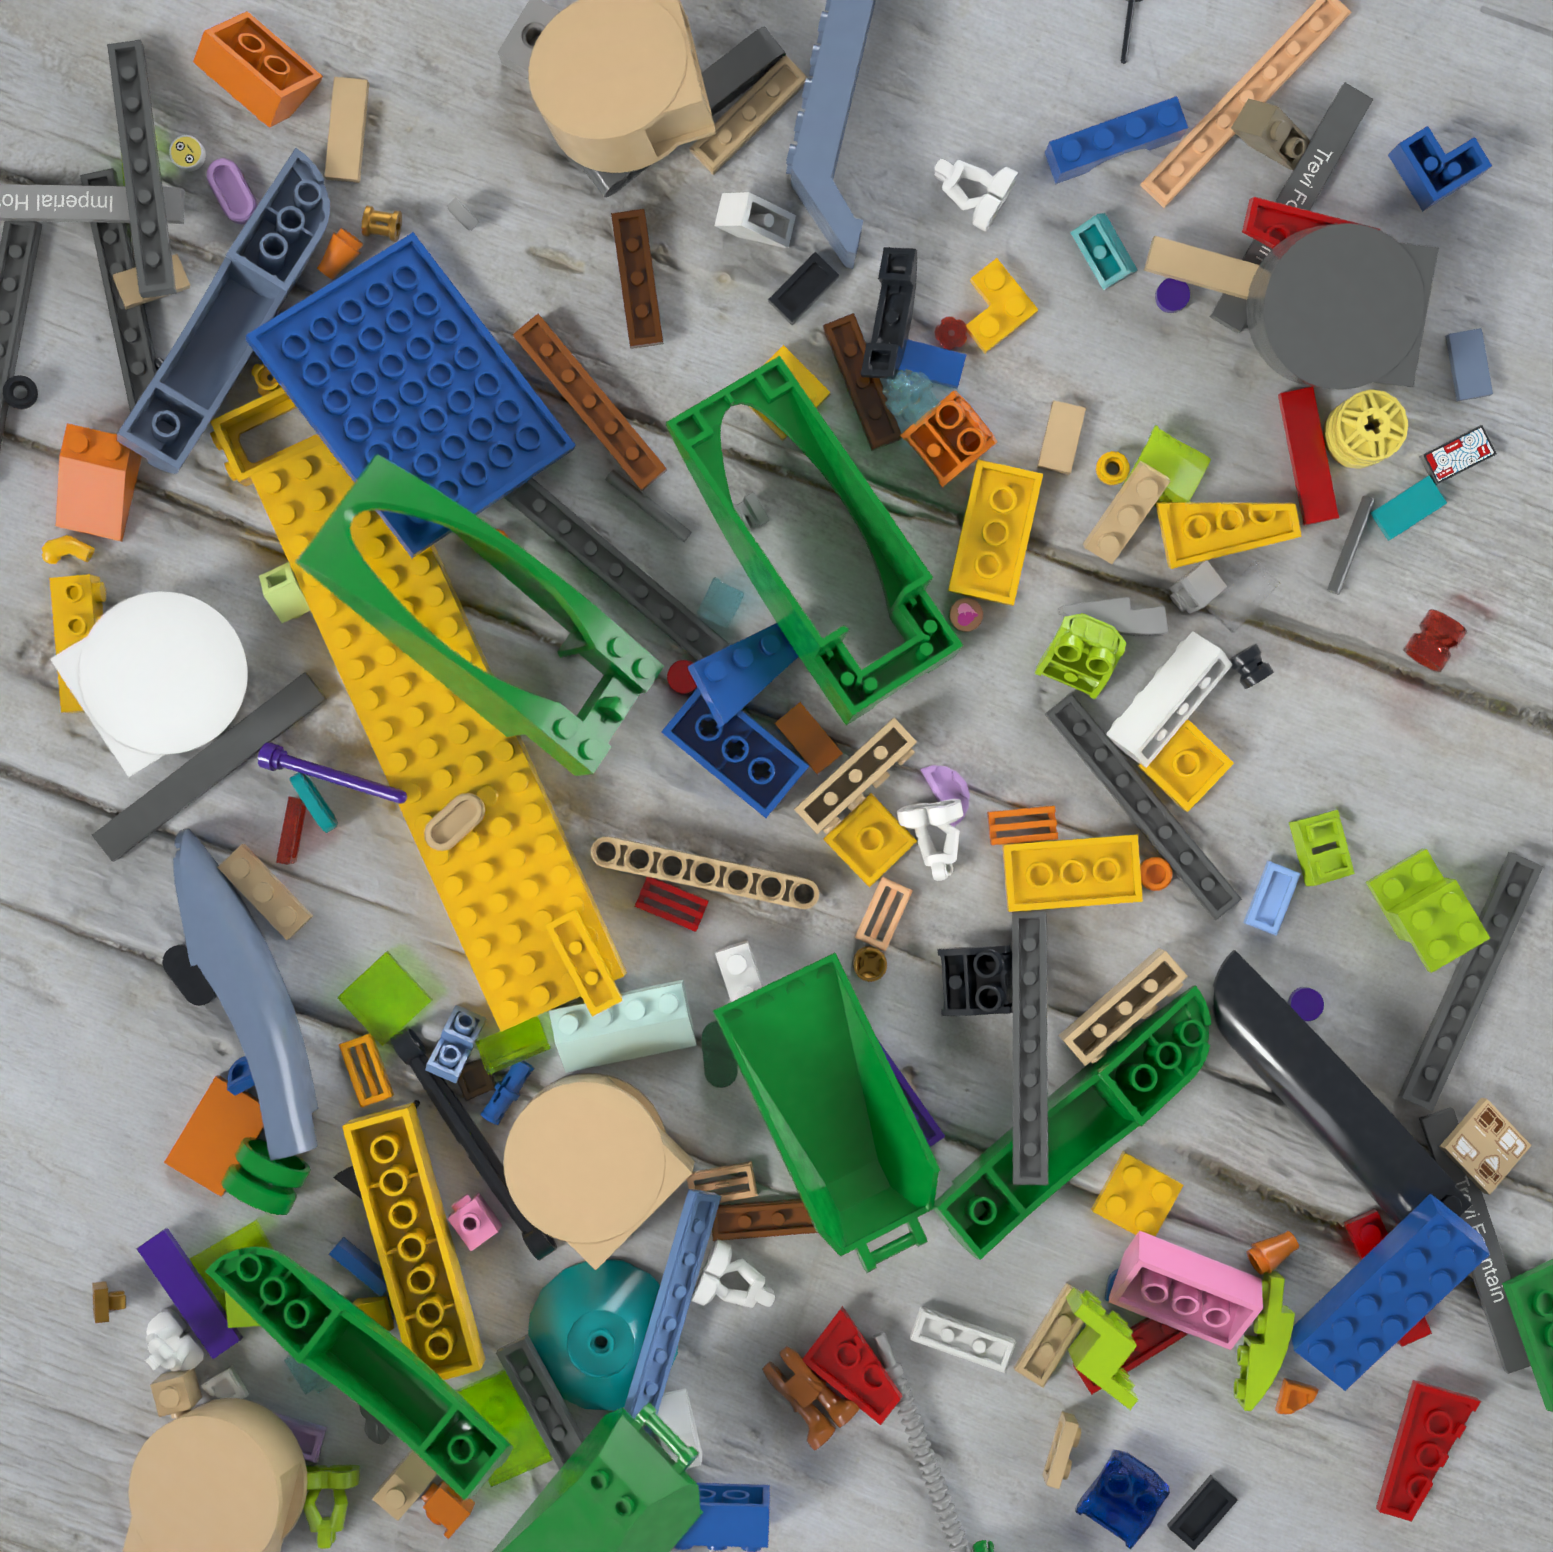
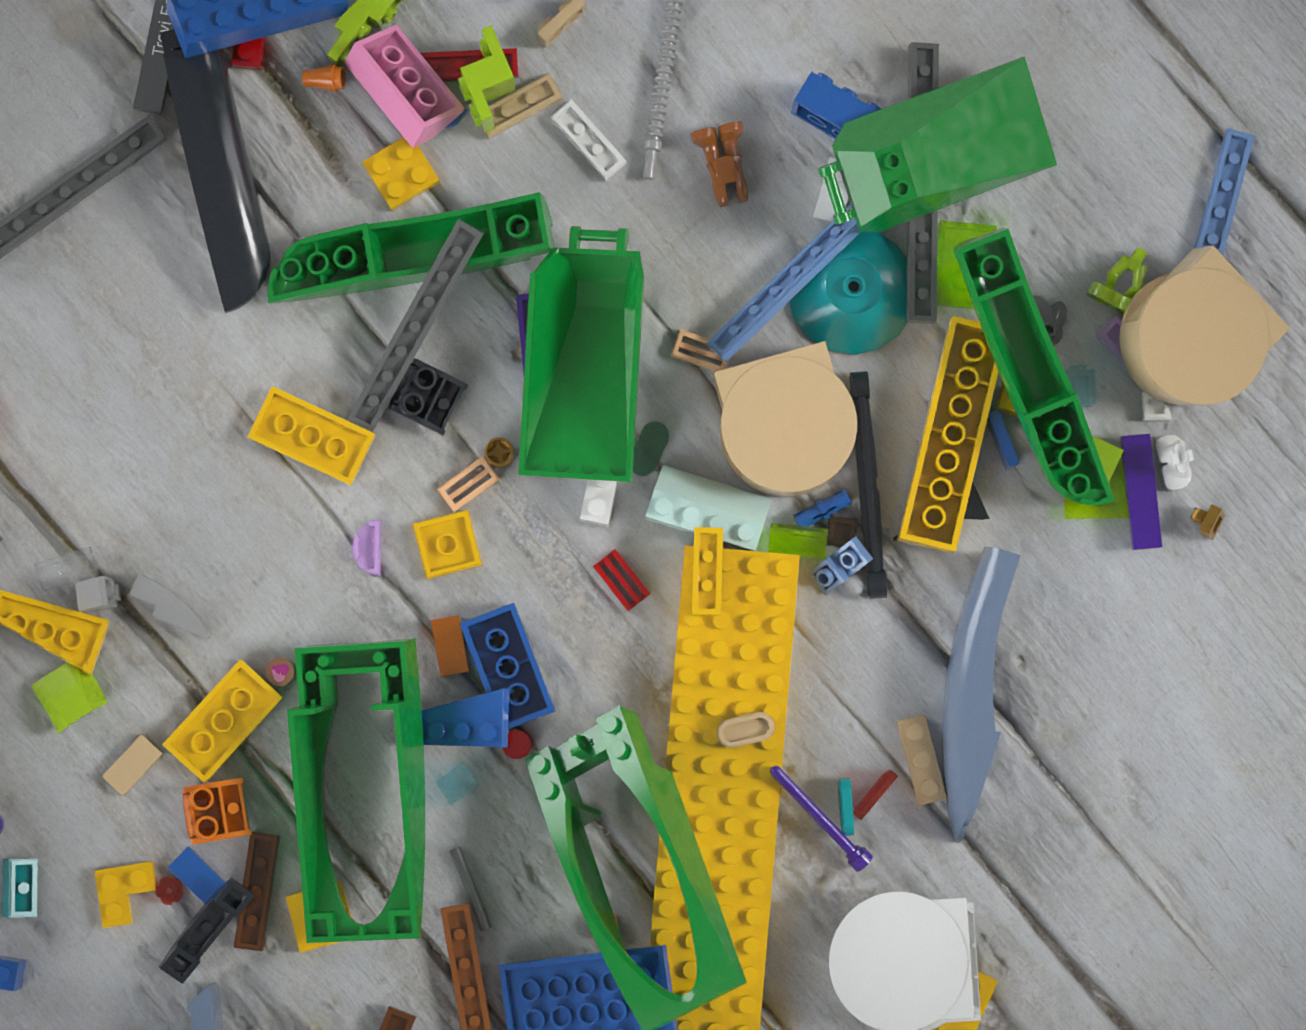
camera: 155 degrees left, 5 degrees down
(176, 1392) = (1191, 424): tan brick -> none
(187, 978) = (1013, 728): black tile -> none
(209, 767) = (911, 877): dark grey tile -> none
(214, 1135) = (1056, 596): orange tile -> none
(239, 1077) = (1012, 631): blue tile -> none
(263, 1181) = (1036, 545): green wheel -> none
(283, 593) = (779, 976): yellowish green brick -> none
(378, 1065) = (915, 608): light orange tile -> none
(384, 998) = (875, 629): clear neon green tile -> none
(404, 1485) = (1053, 264): tan slope -> none
(446, 1507) = (1036, 230): orange brick -> none
(474, 1220) = (899, 427): bright pink brick -> none
(616, 570) = (521, 852): dark grey tile -> none
(688, 875) = (575, 576): tan beam -> none
(720, 1263) = (736, 294): white piece -> none
(751, 511) = (394, 839): light grey wheel -> none
(761, 1220) = (683, 307): dark orange tile -> none
(803, 288) = (260, 988): black tile -> none
(852, 1368) = (680, 164): red wing -> none
(855, 775) = (430, 597): tan brick -> none
(910, 396) = (227, 858): clear light blue brick -> none
(937, 814) = (384, 533): white piece -> none
(988, 205) = (88, 971): white piece -> none
(1051, 823) = (306, 482): orange tile -> none
(1082, 654) = (210, 592): lime slope -> none
(1120, 461) = (102, 713): yellow plate -> none
(1122, 1006) = (330, 317): tan brick -> none
(1126, 512) = (117, 680): tan plate -> none
(1143, 806) = (231, 456): dark grey tile -> none
(1155, 873) = (250, 400): orange tile -> none
(1169, 698) = (165, 523): white brick -> none
(1187, 766) = (181, 469): yellow plate -> none
(1250, 666) = (92, 514): black wheel -> none
(1272, 898) = (175, 335): light blue tile -> none
(1307, 1003) = (194, 243): dark purple tile -> none
(1315, 832) = (113, 364): lime piece -> none
(1427, 910) = (67, 262): lime bracket -> none
(1485, 1146) = (125, 68): tan tile -> none

